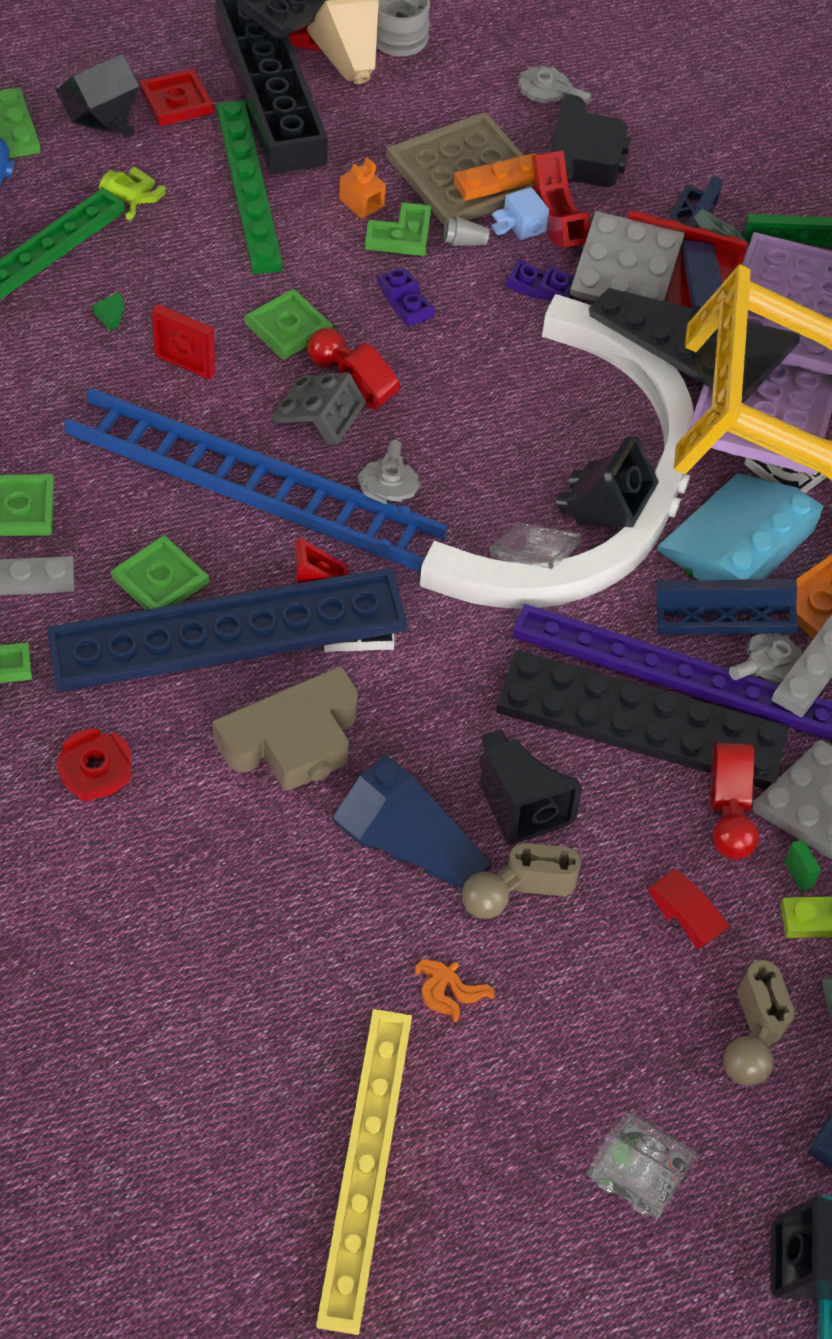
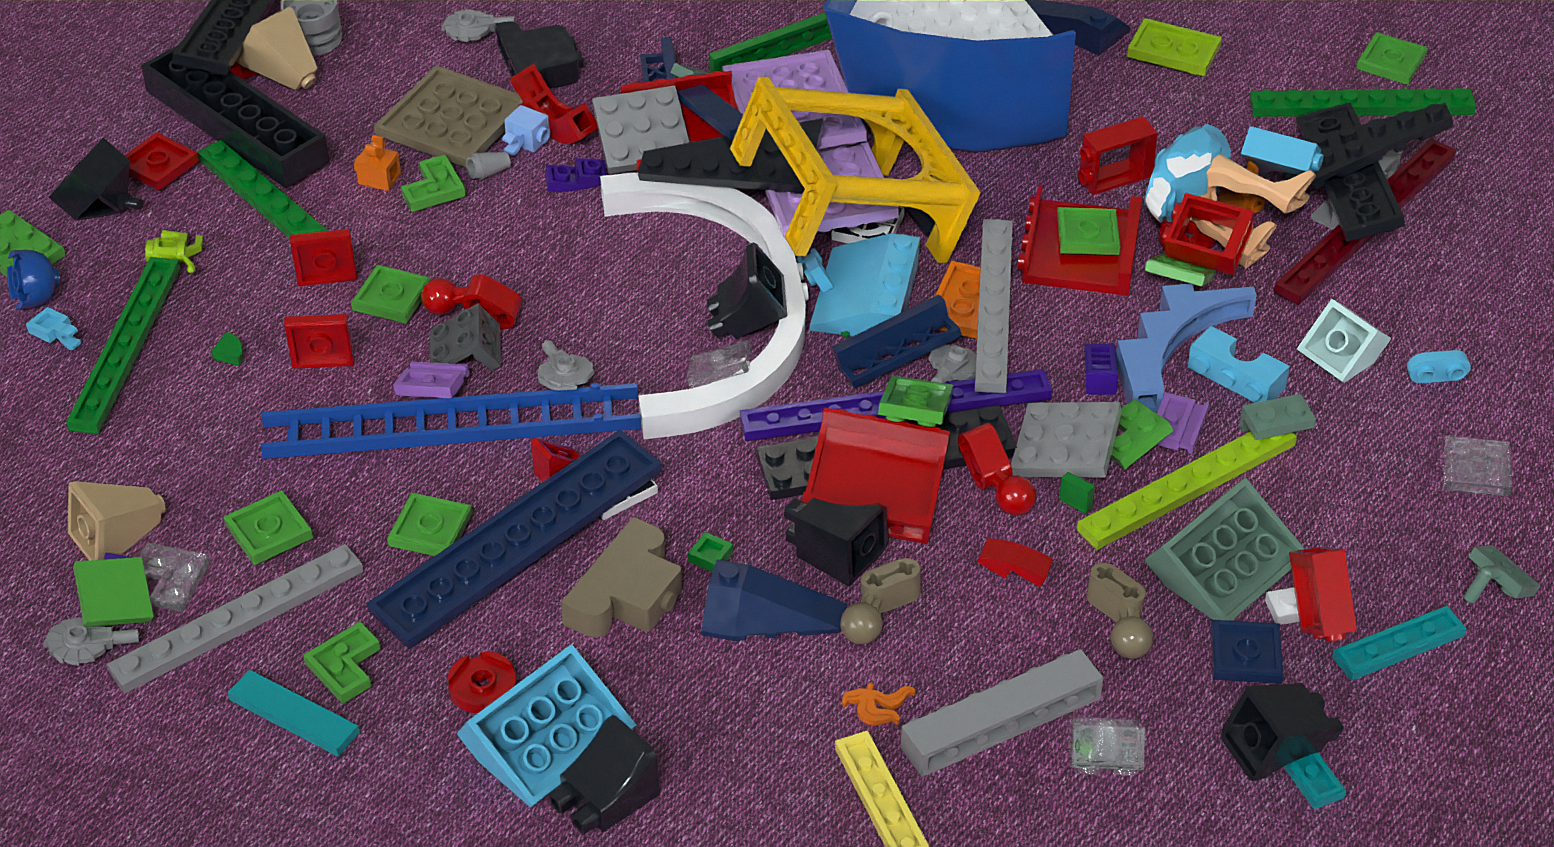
camera: 25 degrees left, 10 degrees down
(118, 843) = (541, 725): none -> medium azure slope
(129, 931) = (608, 778): none -> black hips
(246, 259) = (323, 257): none -> red plate
(262, 428) = (431, 380): none -> medium lavender plate
(396, 739) = (708, 550): none -> green plate
(404, 297) = (470, 232): dark purple slope -> none
(495, 177) = (485, 109): orange plate -> none
(560, 1069) = (1000, 712): none -> light grey brick
(612, 740) = (880, 462): none -> red panel
(694, 683) = (915, 400): none -> bright green plate
(699, 491) = (815, 271): none -> medium azure plate

